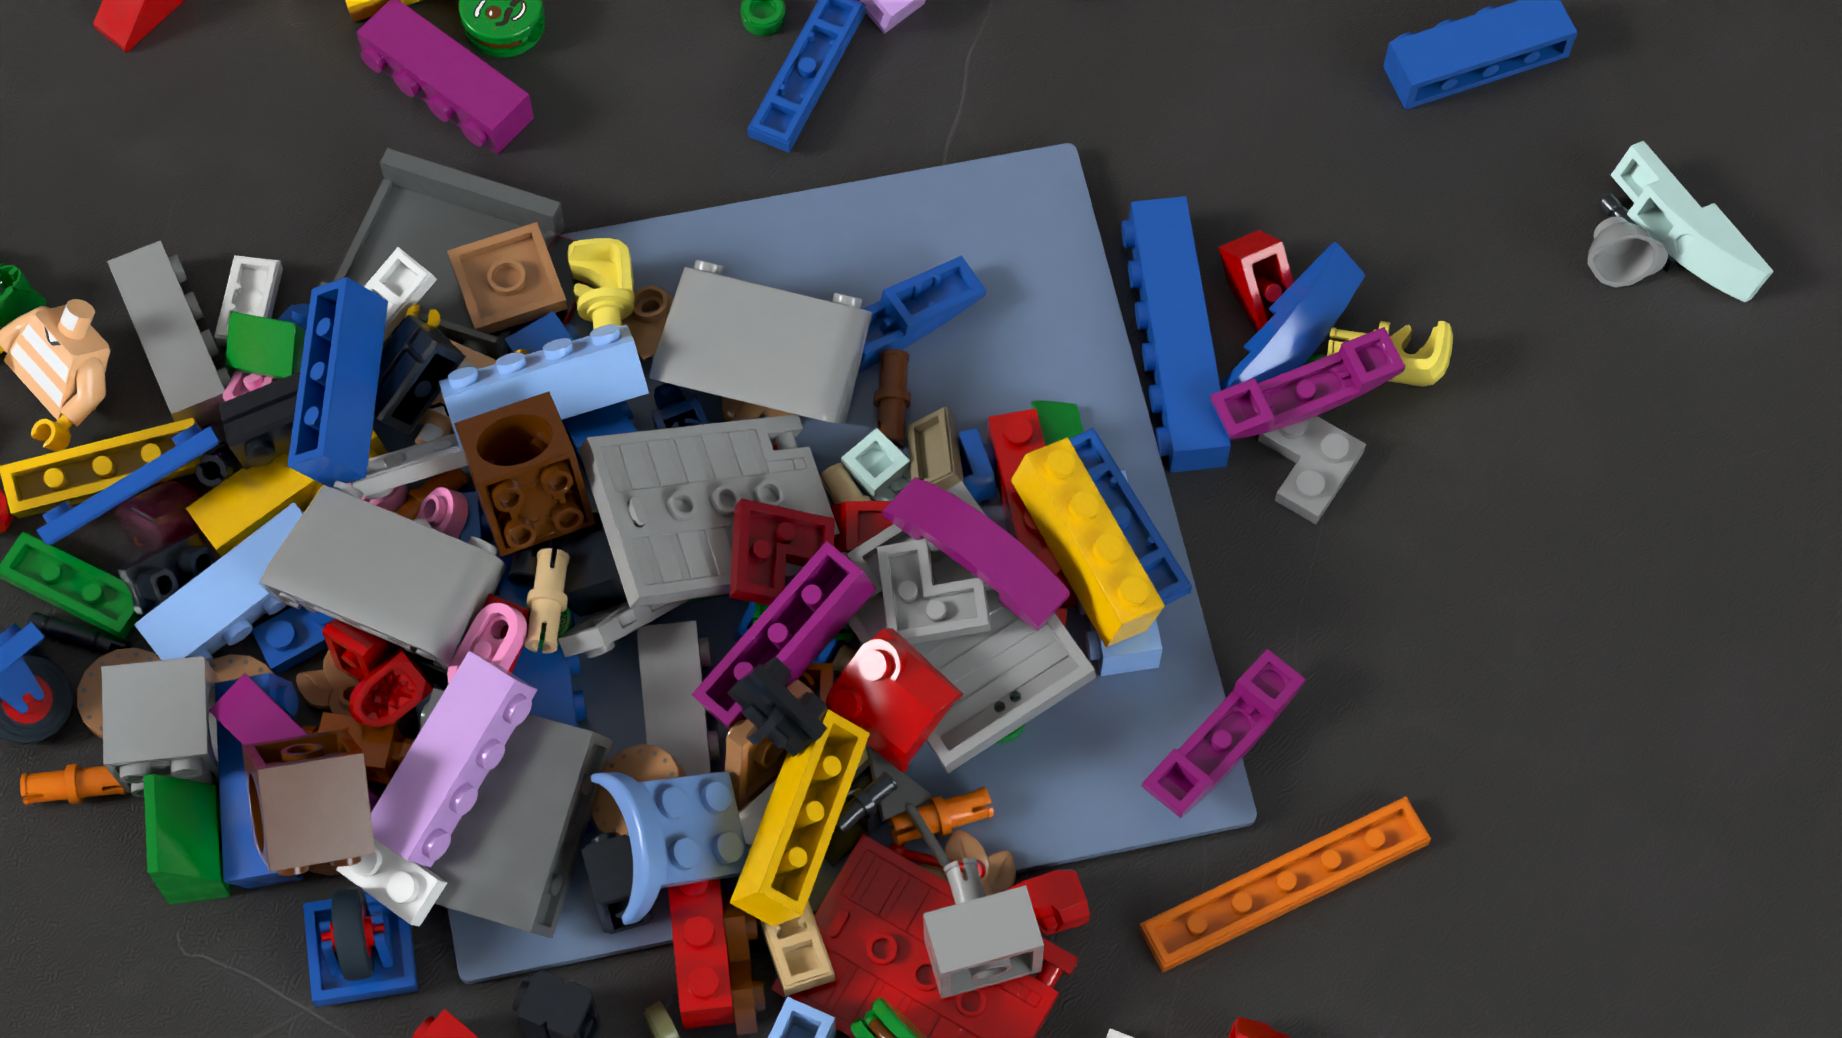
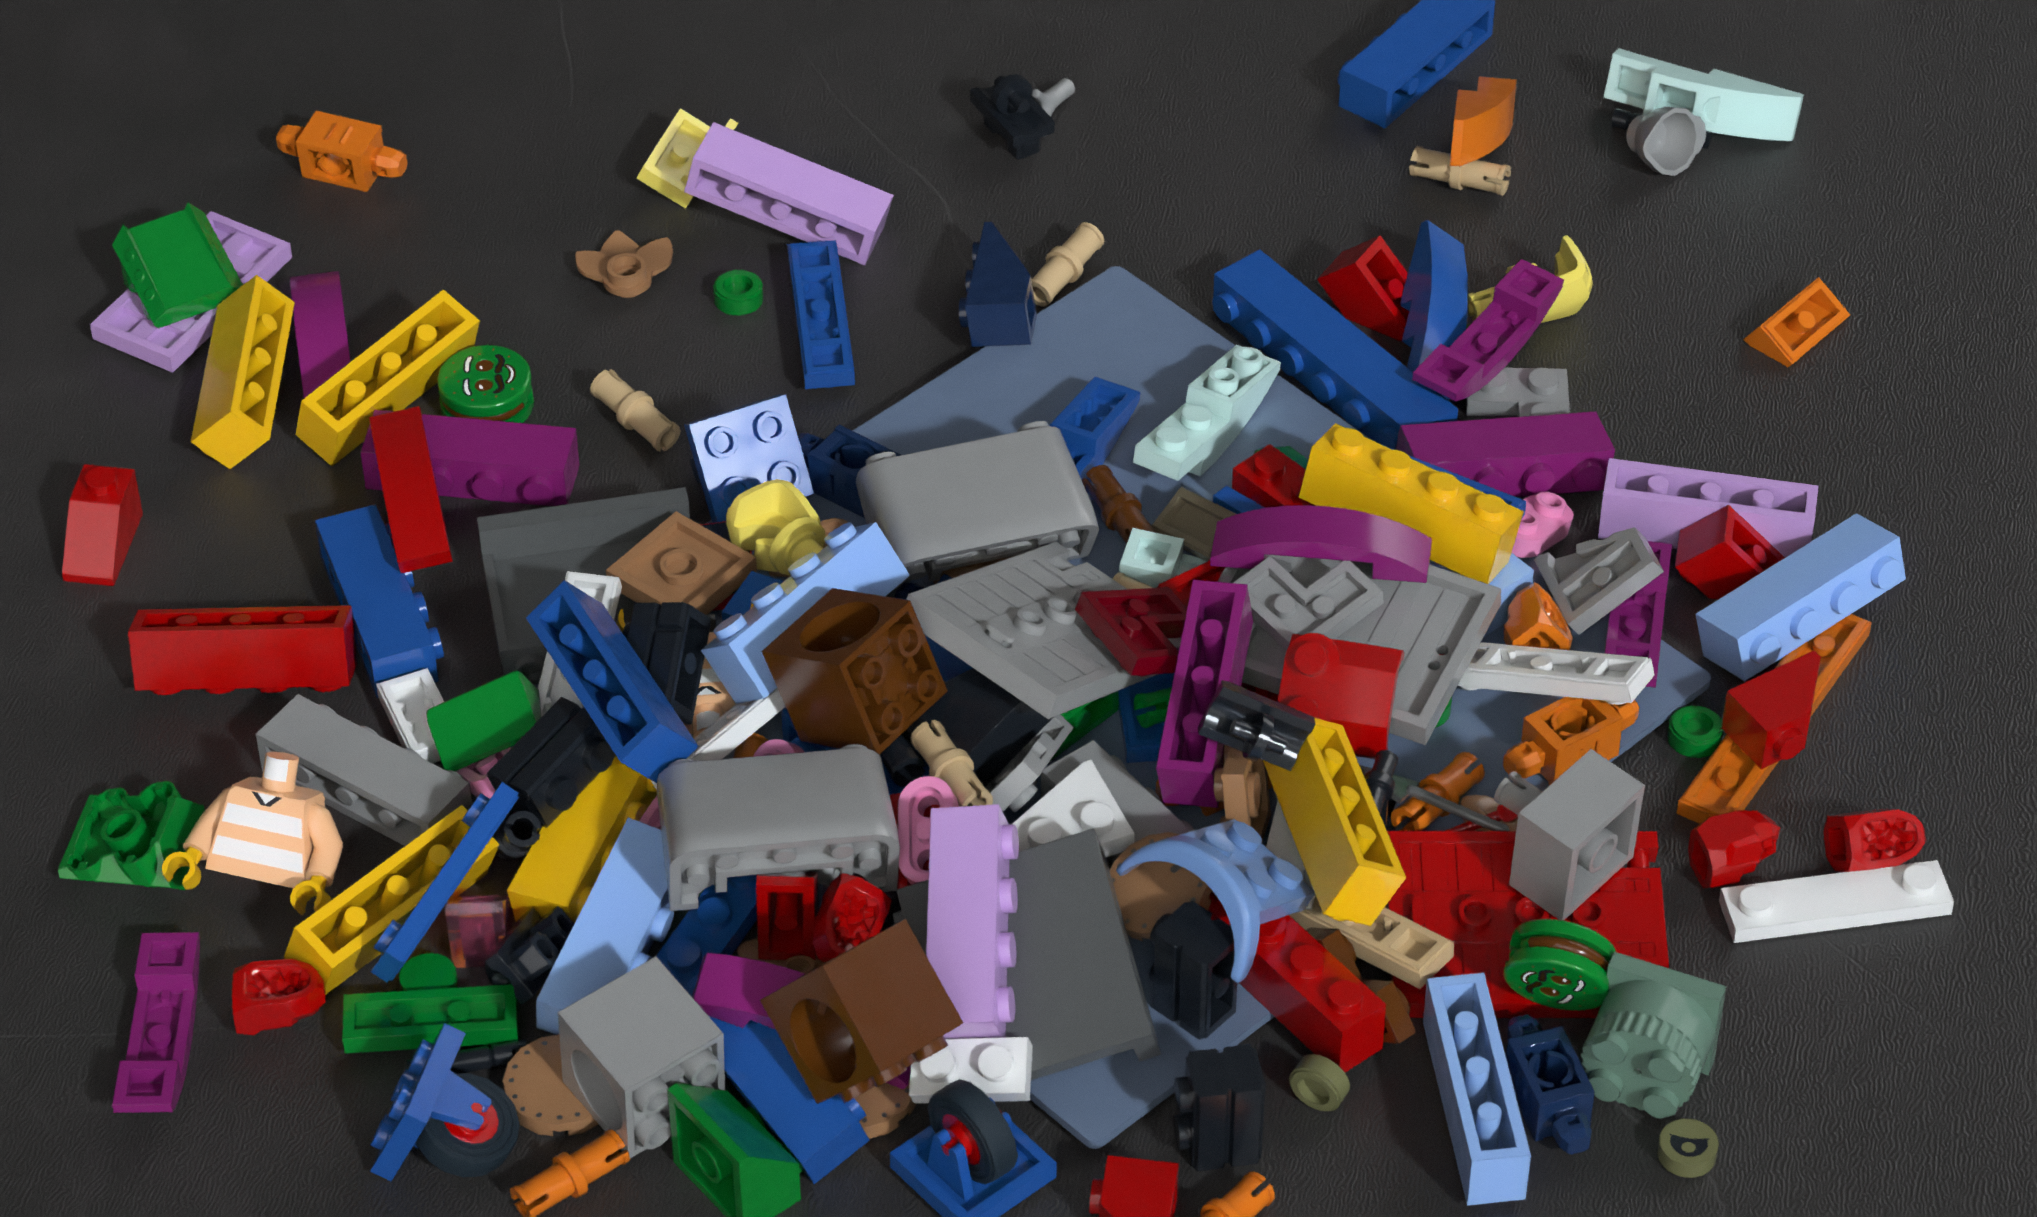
camera: 30 degrees left, 20 degrees down
(99, 546) = (428, 972): none -> green tile
(156, 172) = (242, 649): none -> red brick
(289, 174) = (385, 612): none -> blue brick
(359, 89) = (410, 489): none -> red slope
(600, 91) = (635, 410): none -> tan pin
(616, 695) = (1073, 807): none -> white wing
(629, 197) = (744, 450): none -> plate
(703, 225) = (836, 462): none -> dark blue piece
(946, 134) = (999, 294): none -> dark blue slope
(1025, 346) = (1212, 417): none -> light aqua slope
(1032, 120) = (1066, 263): none -> tan pin
(1105, 763) = (1558, 672): none -> white plate
(1135, 700) = (1536, 621): none -> orange rock
(1138, 820) = (1565, 732): none -> orange piece
(1147, 997) = (1731, 846): none -> red rock
(1208, 861) = (1695, 731): none -> green tile
(1215, 680) = (1599, 576): none -> light grey wing
(1223, 589) = (1543, 525): none -> bright pink plate
(1239, 512) = (1517, 452): none -> magenta brick
(1271, 892) = (1773, 711): none -> red slope
(1357, 719) = (1722, 553): none -> red slope
(1365, 660) = (1670, 498): none -> lavender brick
(1380, 788) = (1800, 596): none -> light blue brick
(1427, 191) = (1475, 174): none -> tan pin
(1470, 155) = (1482, 119): none -> orange slope
(1603, 499) = (1798, 324): none -> orange slope

